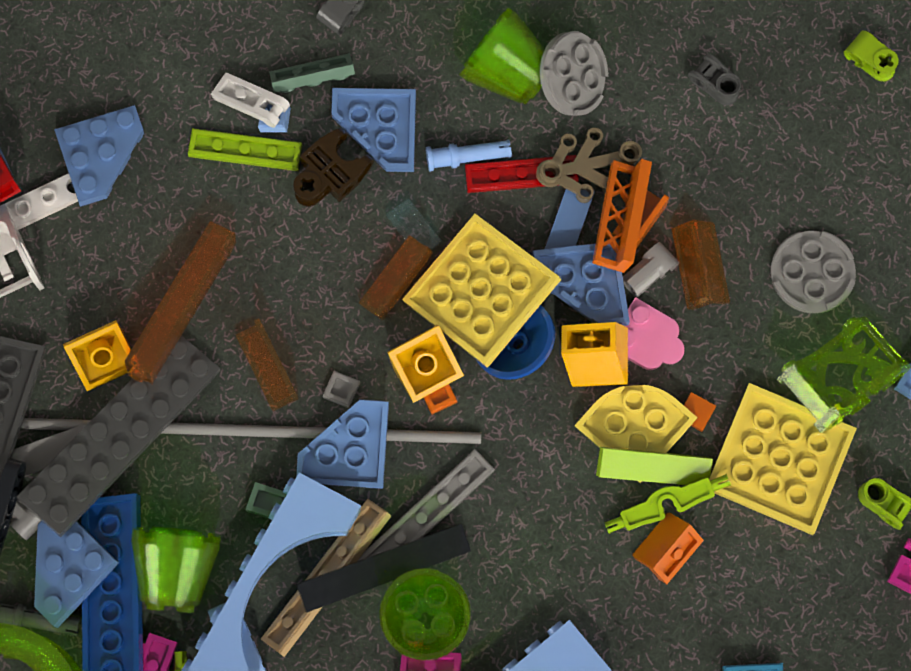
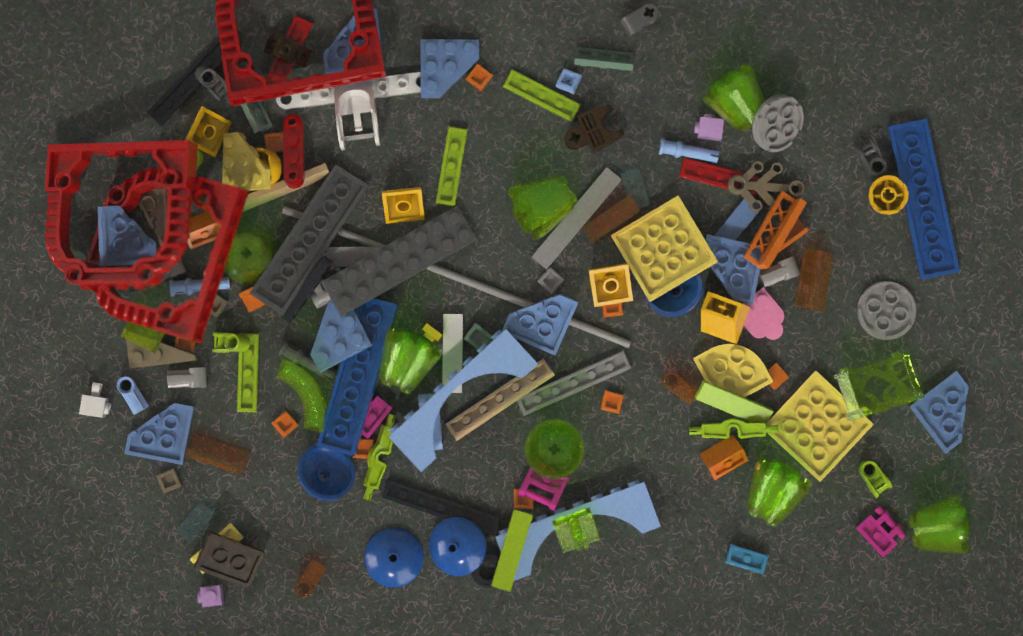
camera: 20 degrees right, 10 degrees up
(149, 269) = (451, 166): none -> lime tile
(152, 154) = (479, 77): none -> orange tile
(180, 303) = (466, 188): clear orange brick -> none
(198, 518) = (431, 334): none -> yellow plate
(234, 526) = (452, 346): none -> white tile
(250, 99) = (556, 63): white plate -> none
(267, 366) = (507, 248): clear orange panel -> none
(291, 287) = (541, 204): none -> clear neon green cone
(347, 294) = (577, 218): none -> light grey tile
(380, 123) = (637, 109): medium blue plate -> none
(382, 567) = (539, 407): black tile -> none
(484, 526) = (611, 401): none -> orange tile
(485, 113) = (709, 127): none -> lavender brick
(574, 471) = (680, 388): none -> clear orange piece
(756, 116) = (888, 195): none -> yellow cylinder
(758, 567) = (775, 490): none -> clear neon green cone
(805, 110) = (926, 203): none -> blue plate
(870, 54) = (980, 175): lime piece -> none

